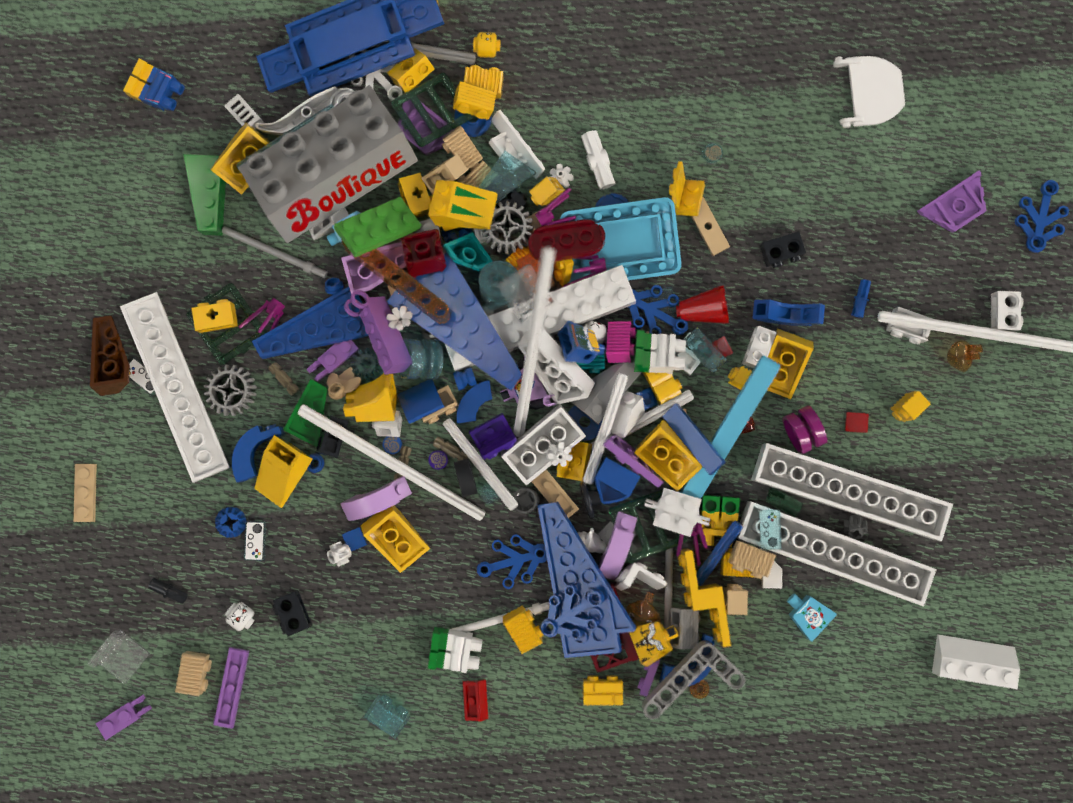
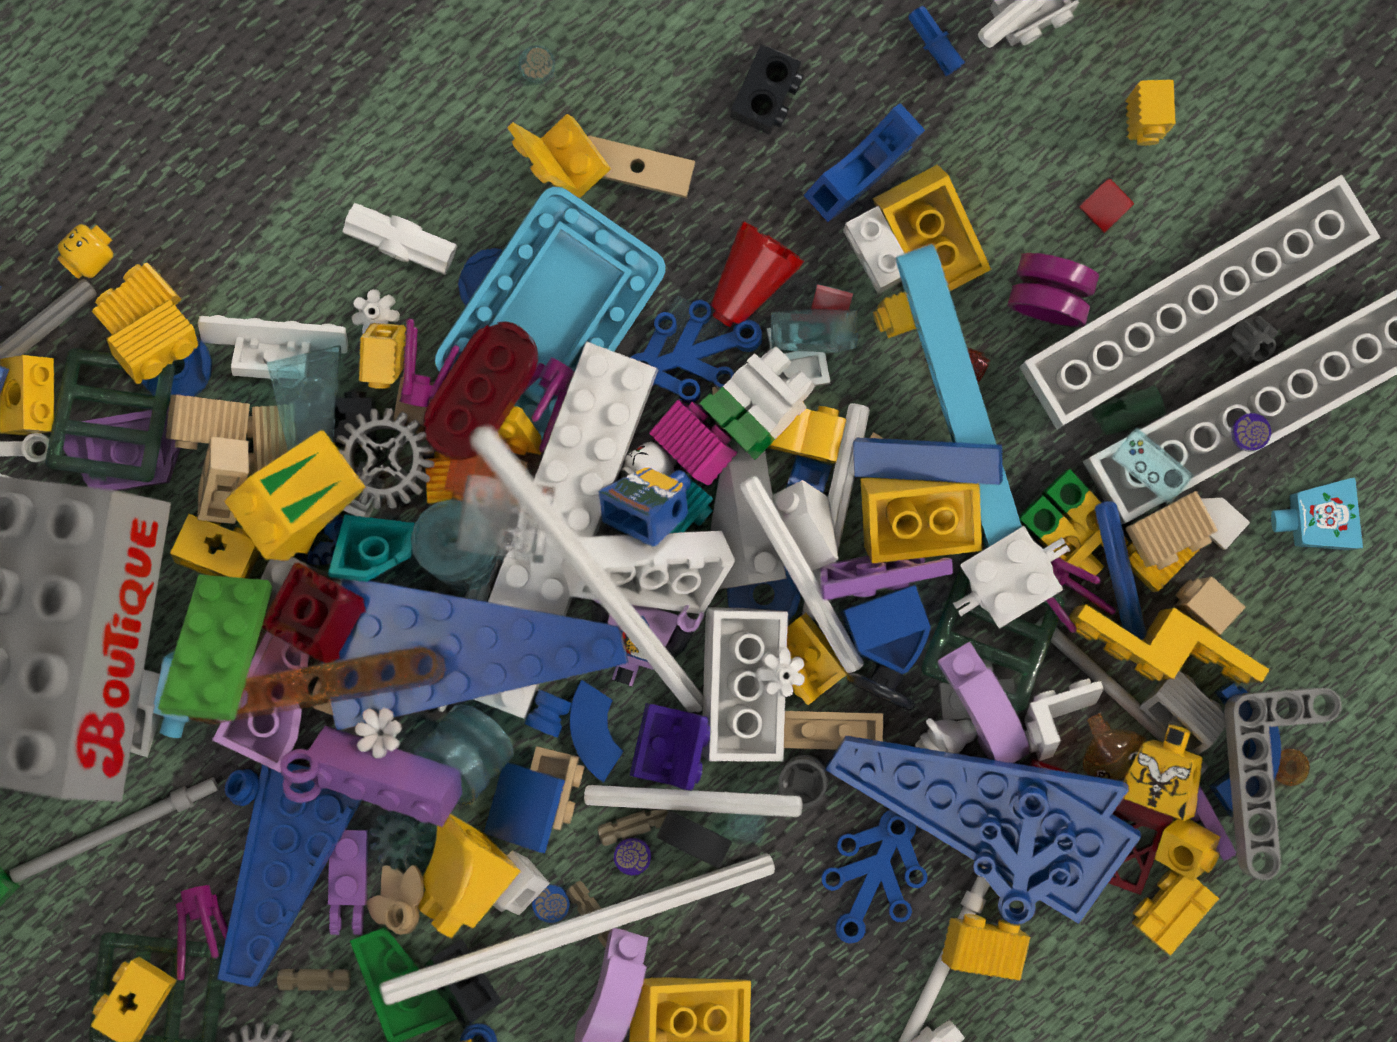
camera: 50 degrees left, 0 degrees up
(631, 675) = (1188, 848): none -> yellow brick
(818, 556) = (1251, 432): none -> dark purple tile

